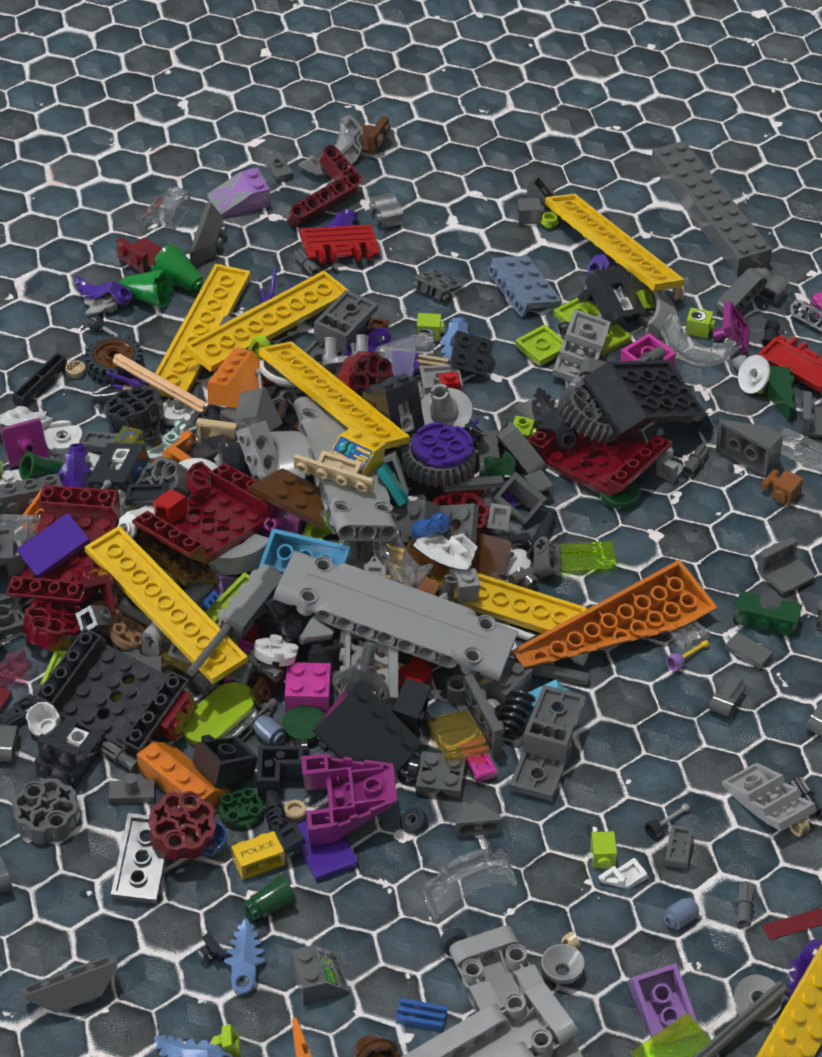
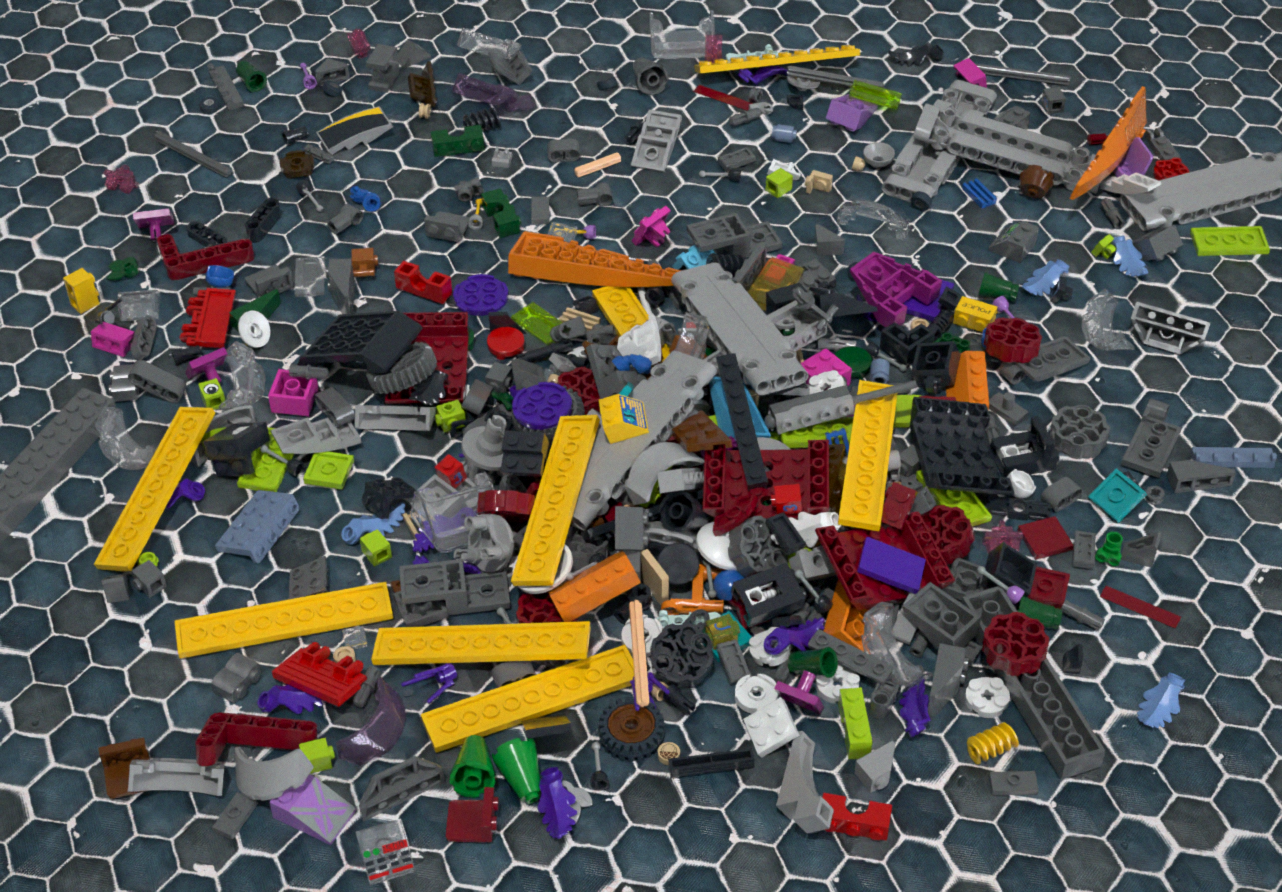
camera: 130 degrees left, 0 degrees up
(128, 937) = (1098, 324): none -> clear windscreen
(159, 308) = (546, 726): none -> tile
(247, 889) = (1002, 305): none -> medium lavender hinge
(257, 343) = (537, 601): lime tile -> none
(266, 256) = (380, 732): none -> clear purple windscreen
(276, 213) = (318, 754): none -> lime brick
(279, 530) = (742, 421): none -> black plate
(286, 171) = (270, 778): none -> light grey windscreen
(337, 469) = (659, 405): tan bracket -> none
(348, 270) = (342, 651): none -> tan tile
(359, 282) = (355, 637): none -> clear tile
(416, 253) = (282, 620): none -> yellow plate
(559, 582) = (587, 318): none -> tan tile
(572, 884) = (819, 181): none -> tan bracket
(580, 598) = (586, 305): none -> black slope
(581, 519) = (505, 342): none -> red tile
(610, 527) = (502, 319): none -> black slope
(624, 695) = (653, 228): none -> dark pink plate
(665, 543) = (480, 295): none -> dark purple tile
(694, 256) = (117, 442): none -> clear windscreen
(725, 500) = (410, 279): none -> red arch
(733, 976) = (795, 101): none -> black tile
(747, 936) = (765, 108): none -> light grey arm
(775, 594) = (477, 221): none -> light grey hinge
(775, 939) = (755, 95): none -> dark grey bush
(779, 735) = (597, 164): none -> light nougat axle

